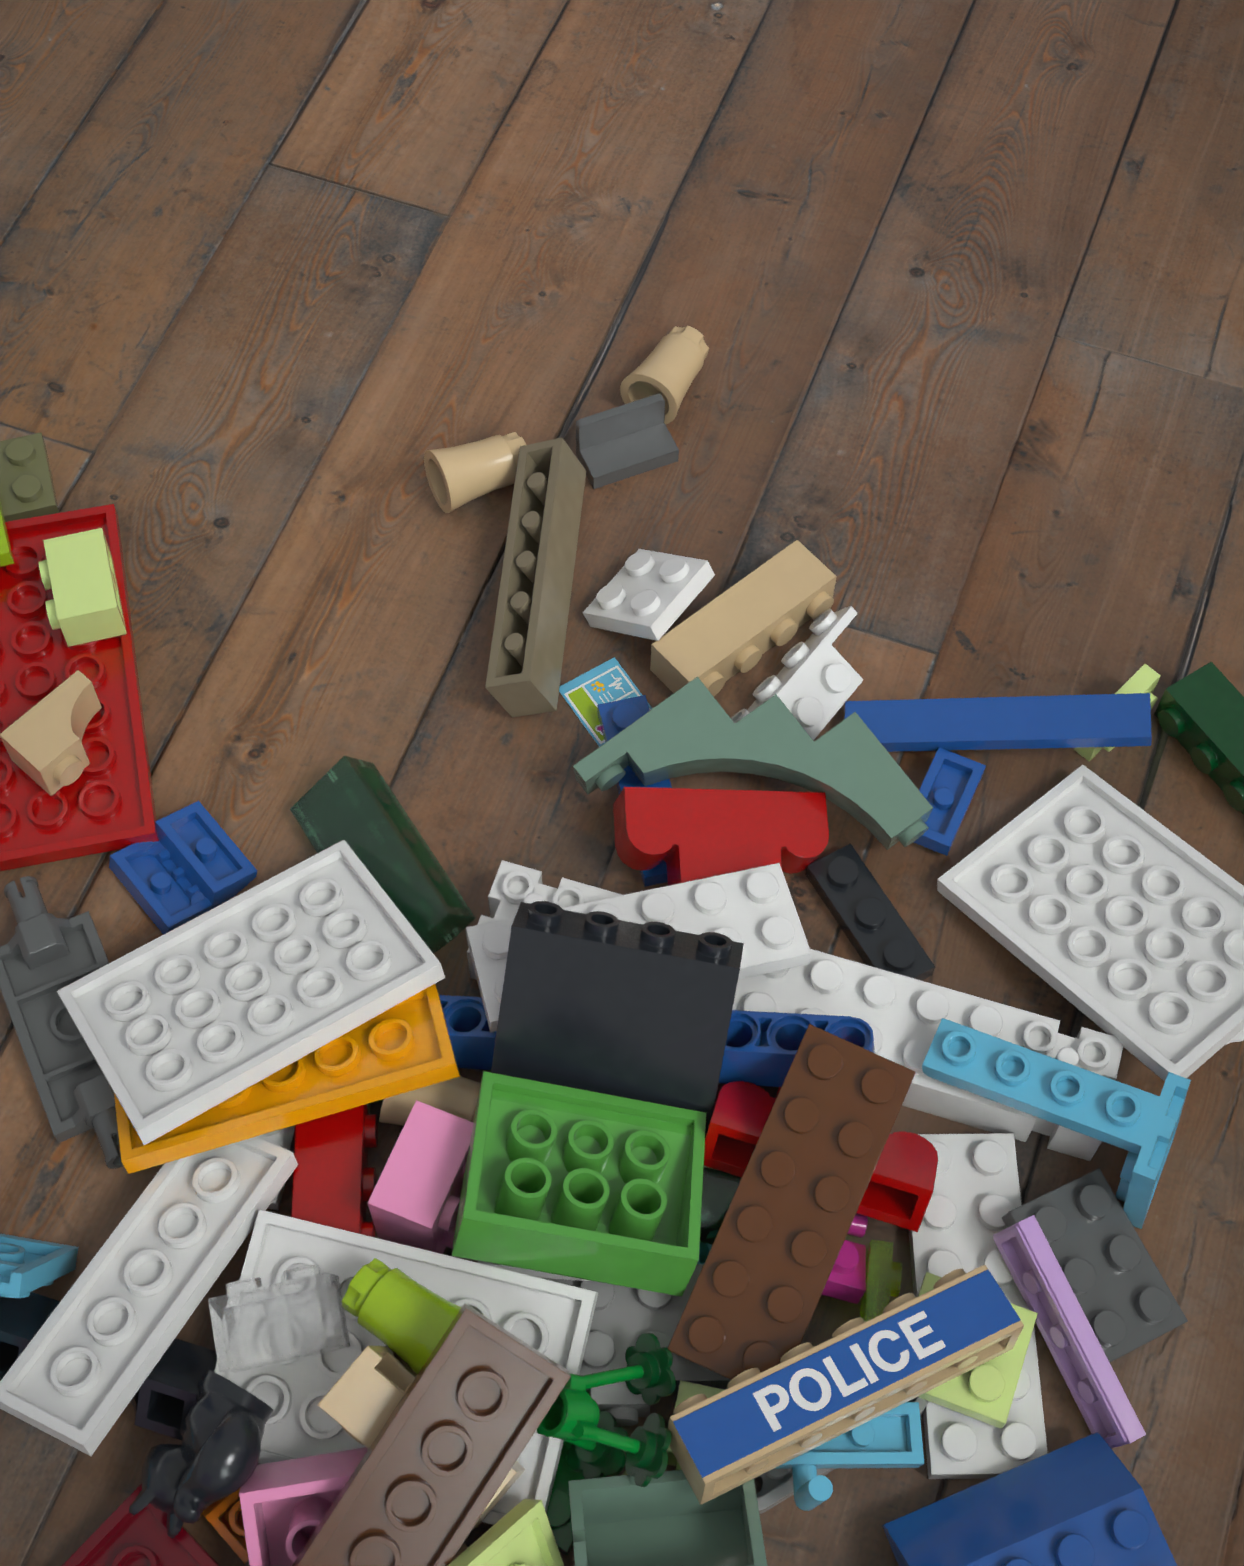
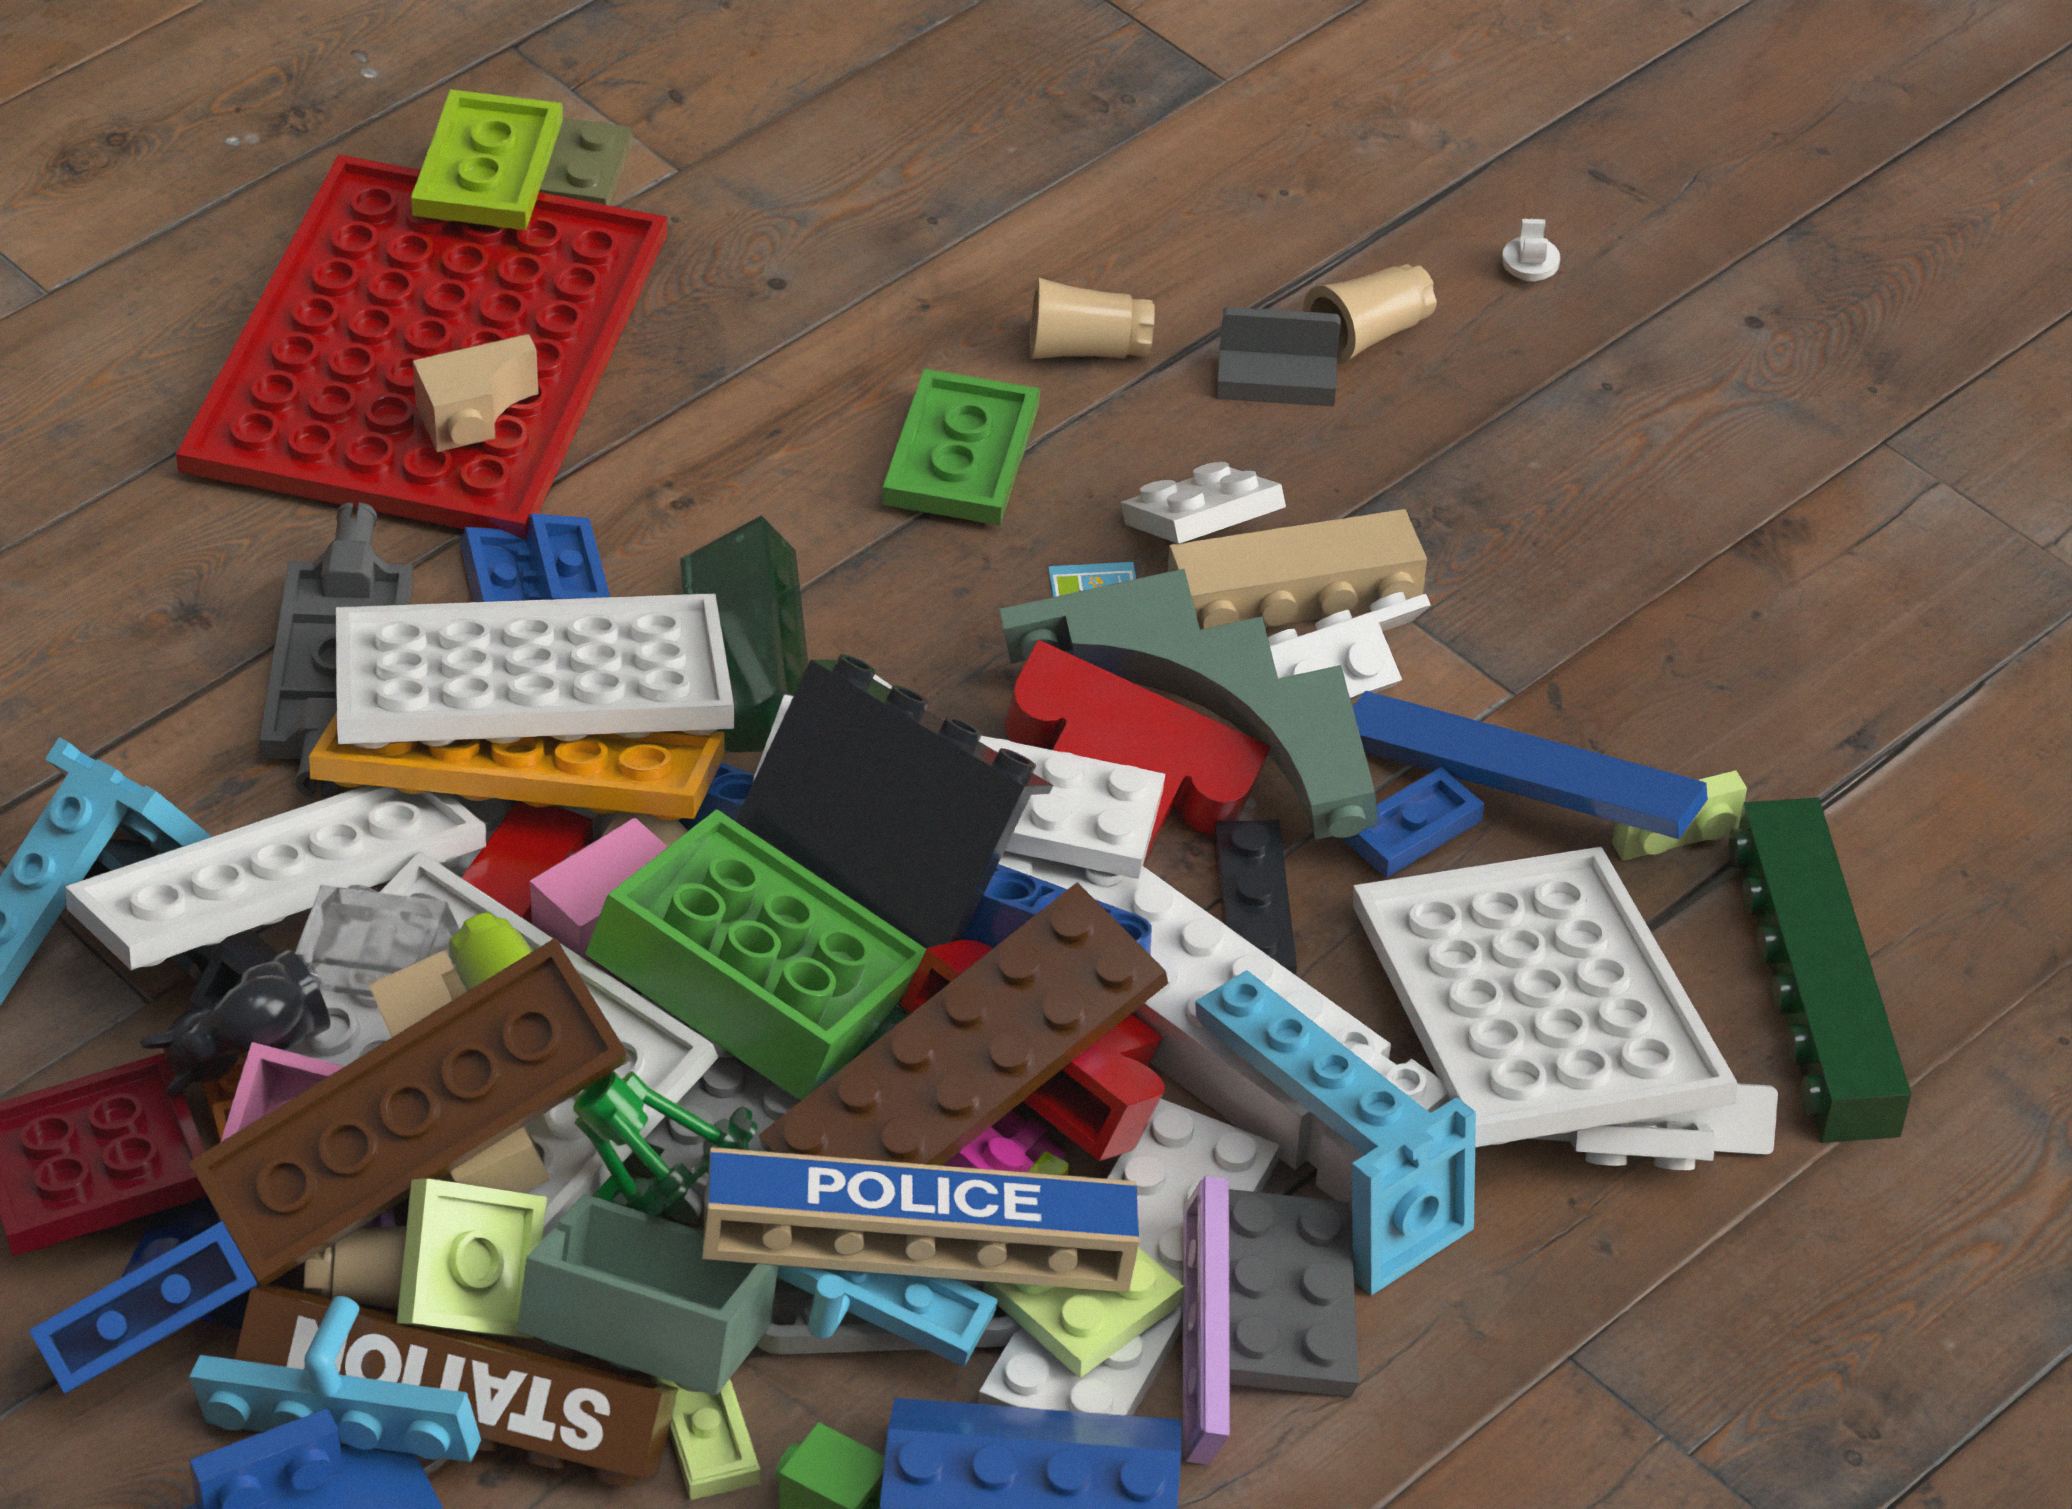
camera: 25 degrees right, 15 degrees down
(83, 587) = (583, 272): yellowish green brick -> none
(440, 613) = (961, 446): none -> bright green plate
(536, 579) = (1084, 443): dark tan brick -> none
(745, 280) = (1531, 255): none -> white plate

